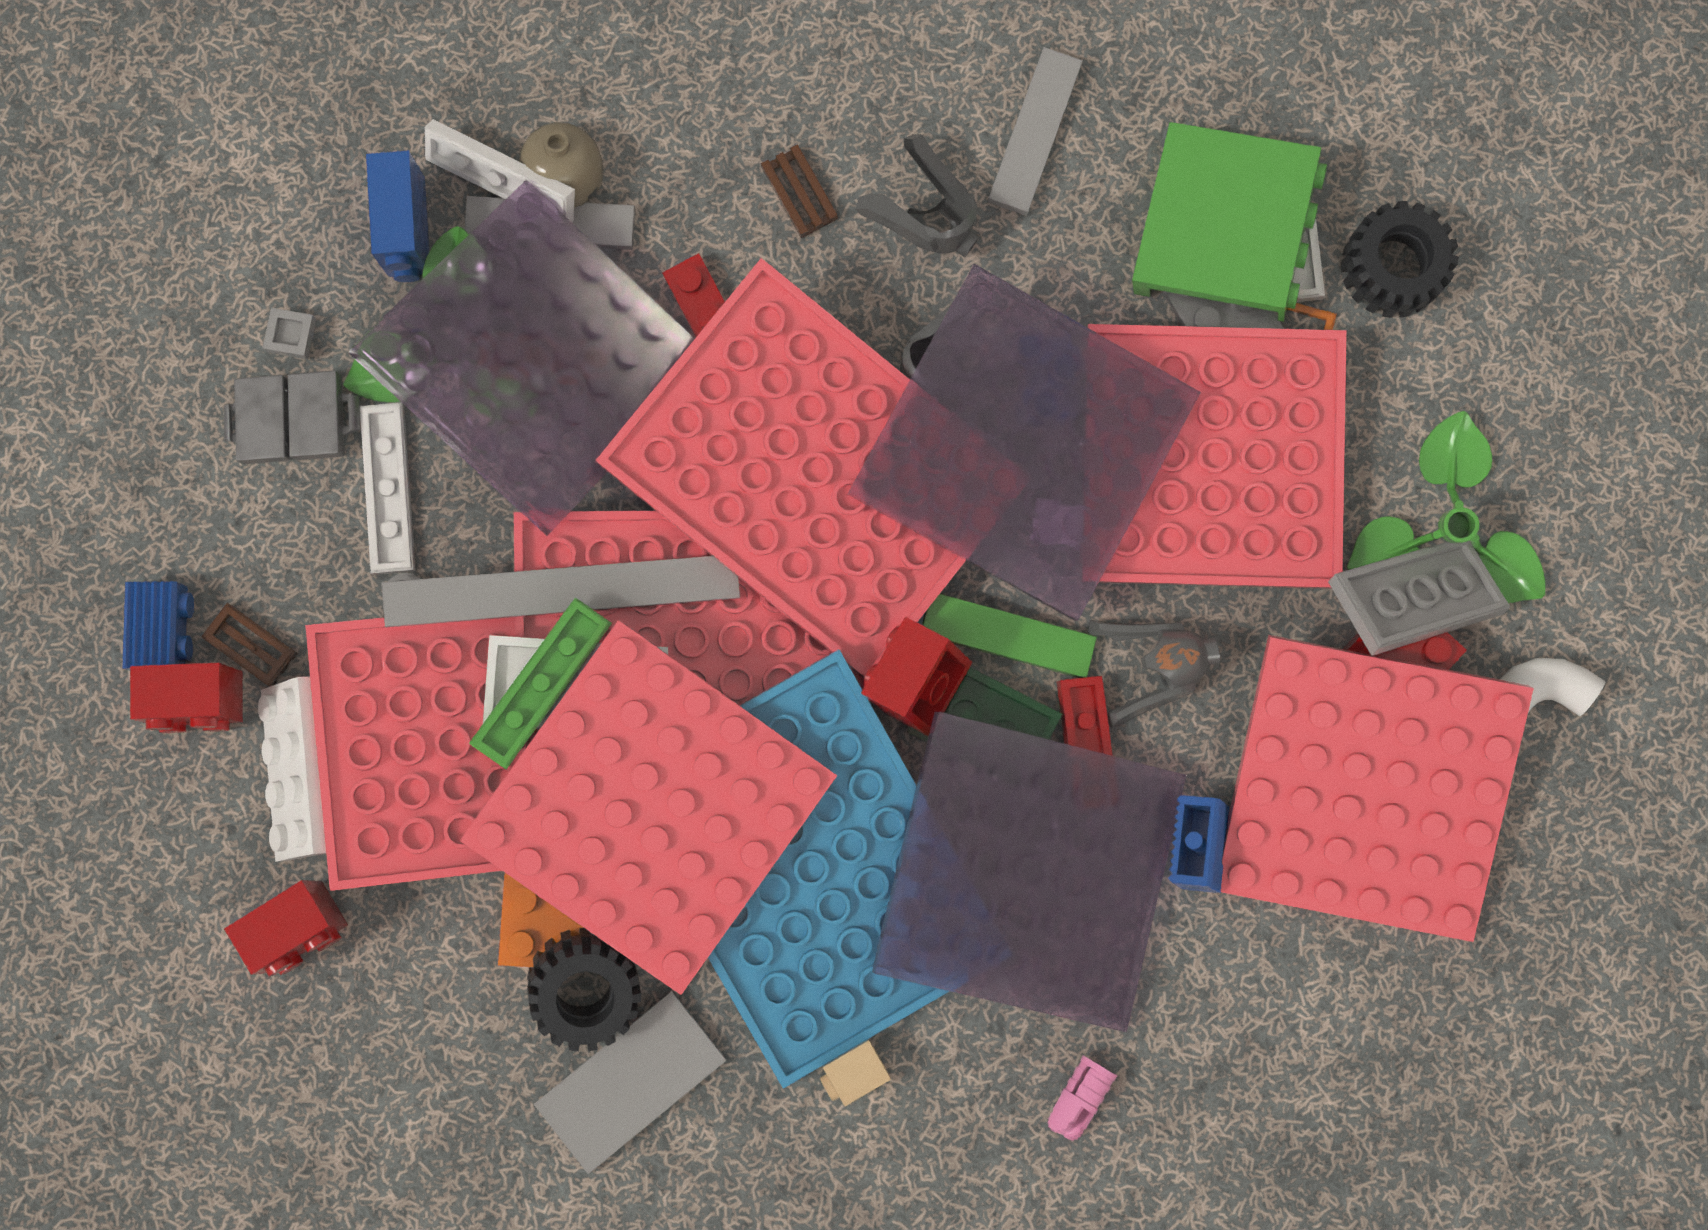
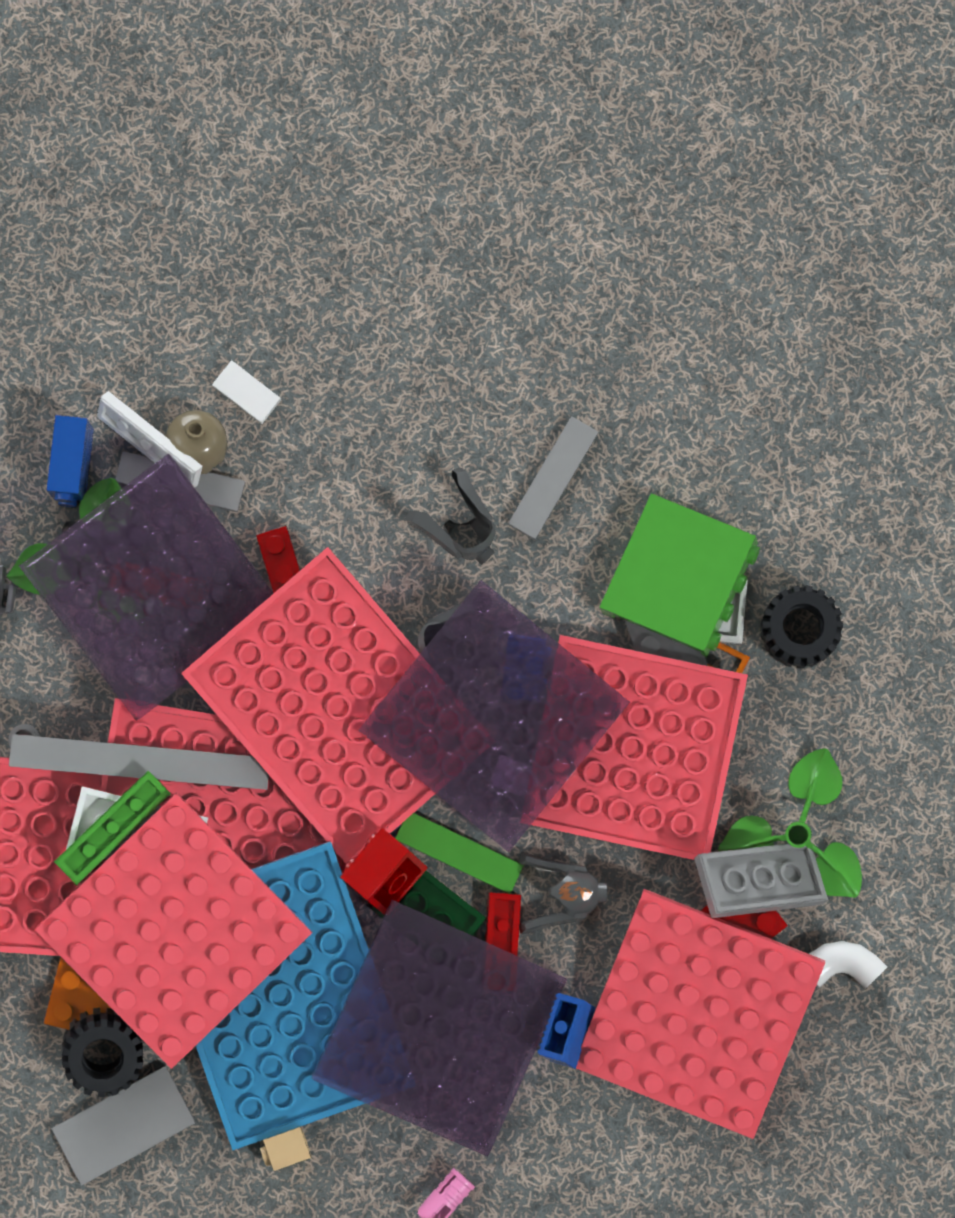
camera: 10 degrees right, 0 degrees up
(387, 488) = (25, 659): white tile -> none
(615, 93) = (246, 392): none -> white tile
(782, 160) = (361, 465): reddish brown tile -> none

